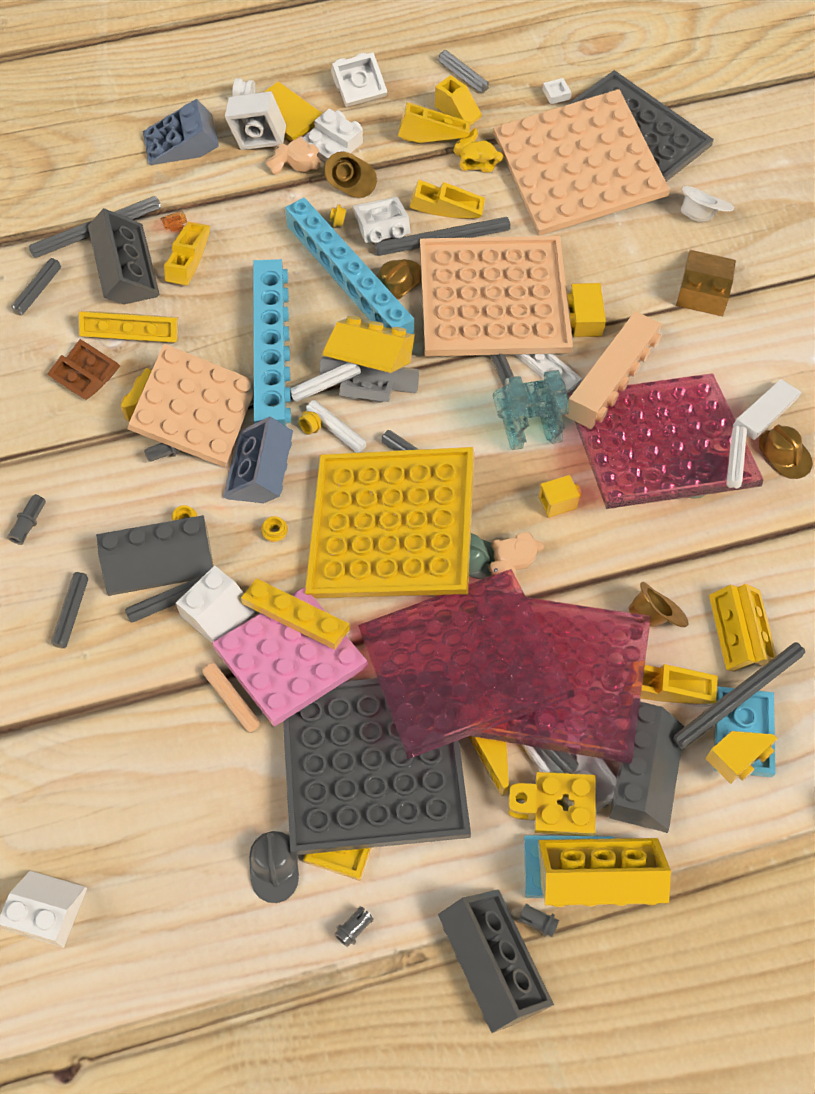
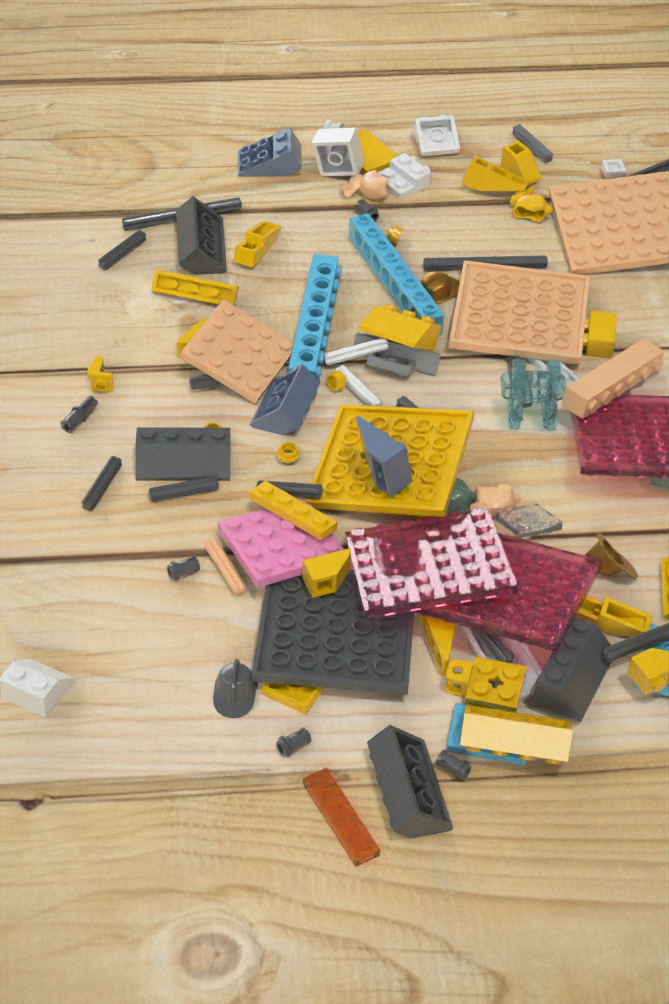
camera: 10 degrees right, 15 degrees down
(37, 465) = (98, 377): none -> yellow bracket
(83, 370) = (150, 315): dark orange slope -> none
(174, 221) = (251, 218): clear orange plate -> none
(183, 710) = (183, 567): none -> dark grey pin
(214, 605) = (224, 495): white slope -> none
(289, 581) = (298, 489): none -> dark grey axle
(301, 189) = (366, 208): none -> dark grey pin
(348, 695) = (326, 572): none -> yellow slope
(350, 174) = (413, 204): pearl gold piece -> none
(382, 220) = (433, 242): white plate -> none
(390, 536) = (385, 458): none -> sand blue slope
(427, 1017) = (341, 817): none -> clear orange plate
(446, 201) = (494, 236): yellow slope -> none
(558, 574) = (528, 521): none -> clear plate
(559, 496) = (543, 466): yellow brick -> none

